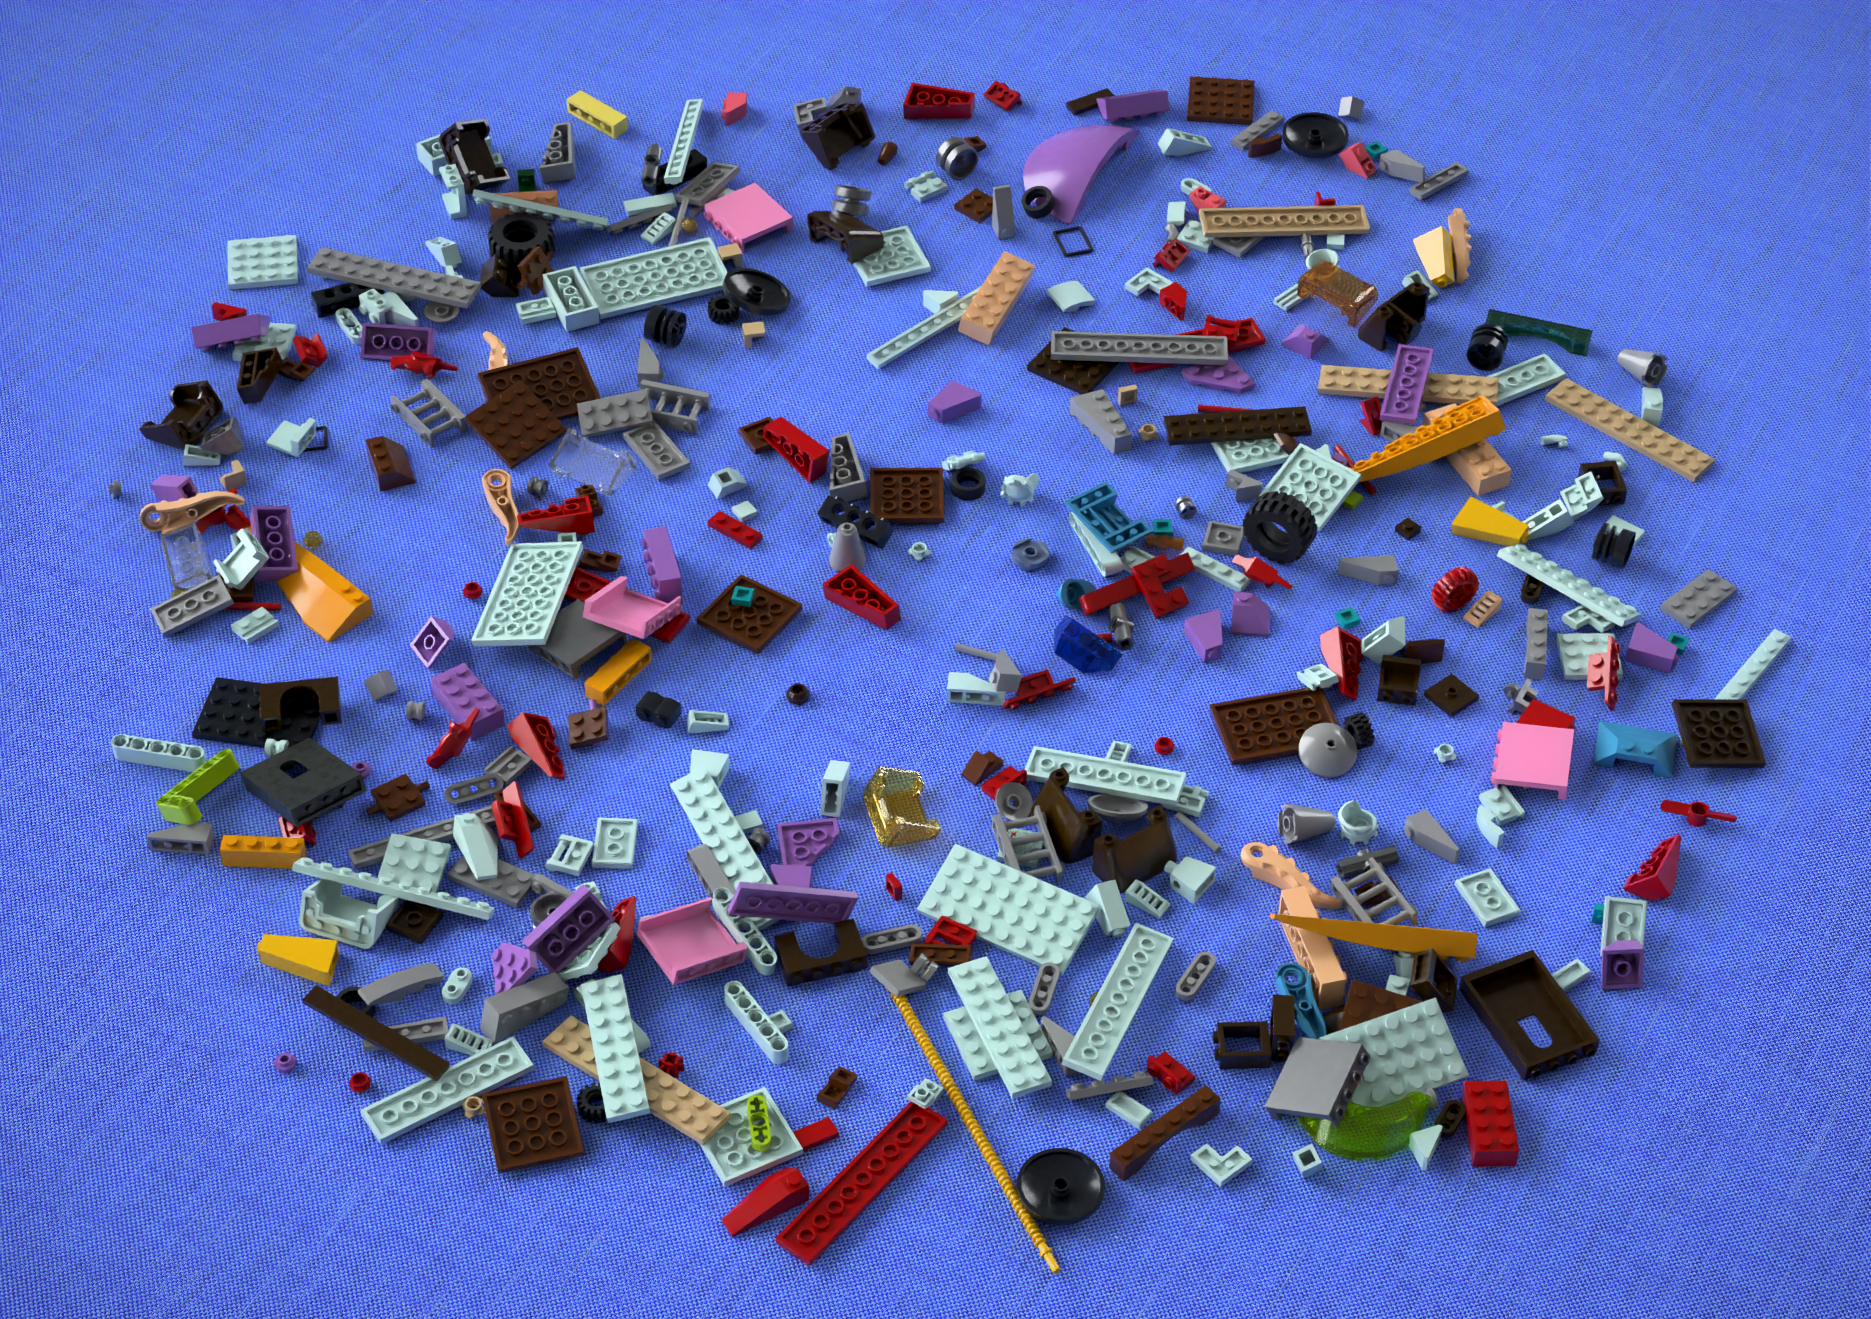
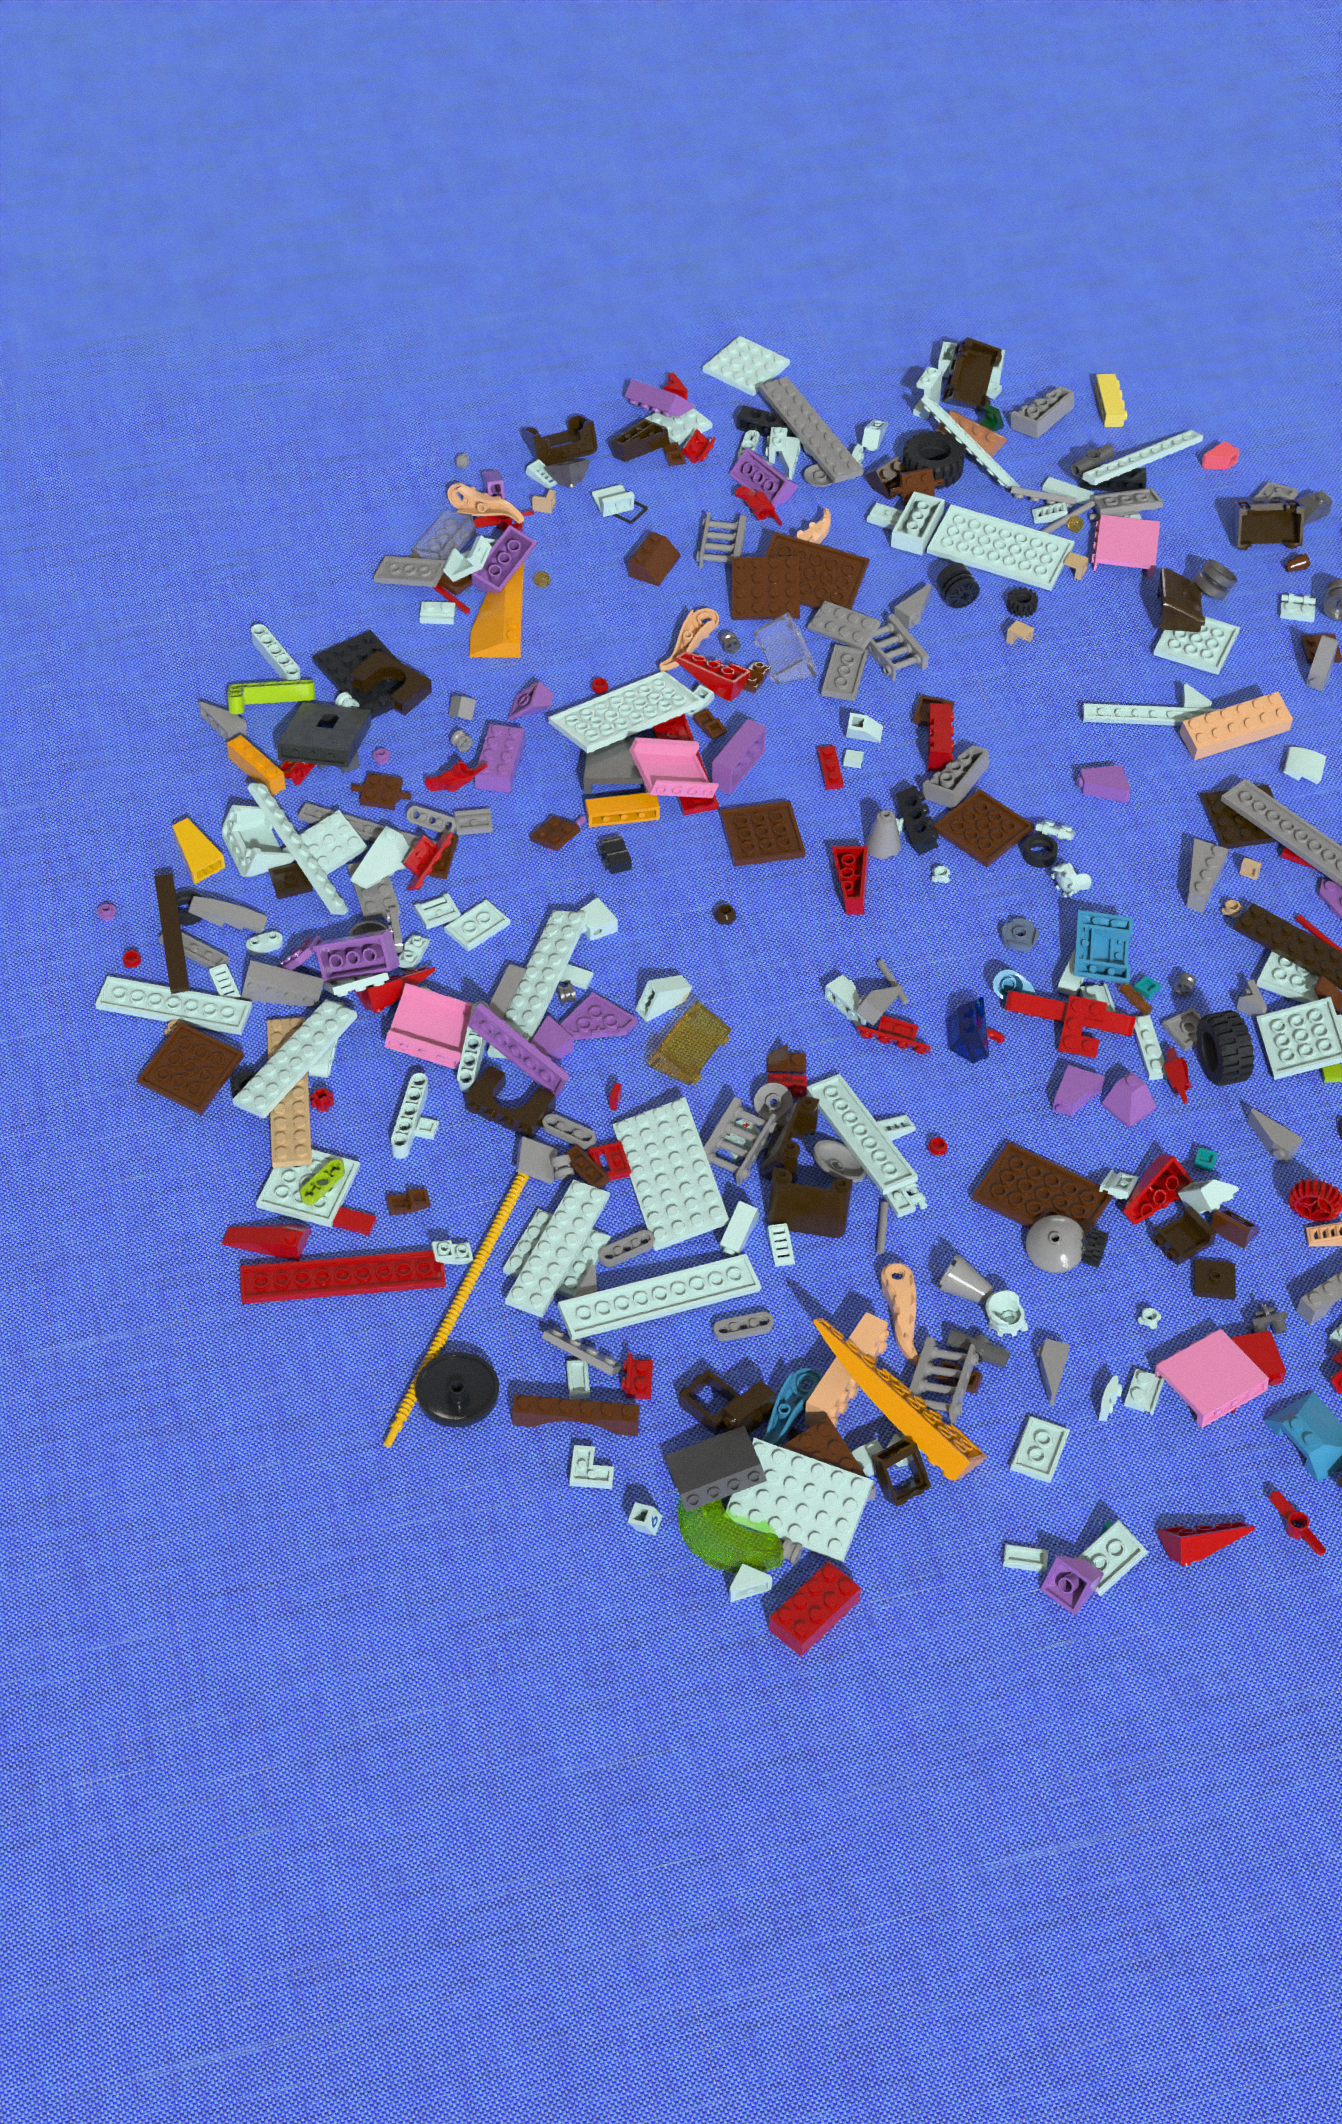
camera: 45 degrees right, 5 degrees up
(536, 738) = (509, 821): red wedge -> none
(700, 721) = (638, 880): light aqua slope -> none
(742, 596) = (766, 816): teal plate -> none
(756, 291) = (1058, 603): black dish -> none
(1121, 626) = (1016, 1036): dark grey piece -> none
(1190, 877) = (830, 1255): light aqua torso -> none
(1449, 1120) = (791, 1579): dark brown plate -> none
(1522, 989) = (959, 1531): dark brown panel -> none

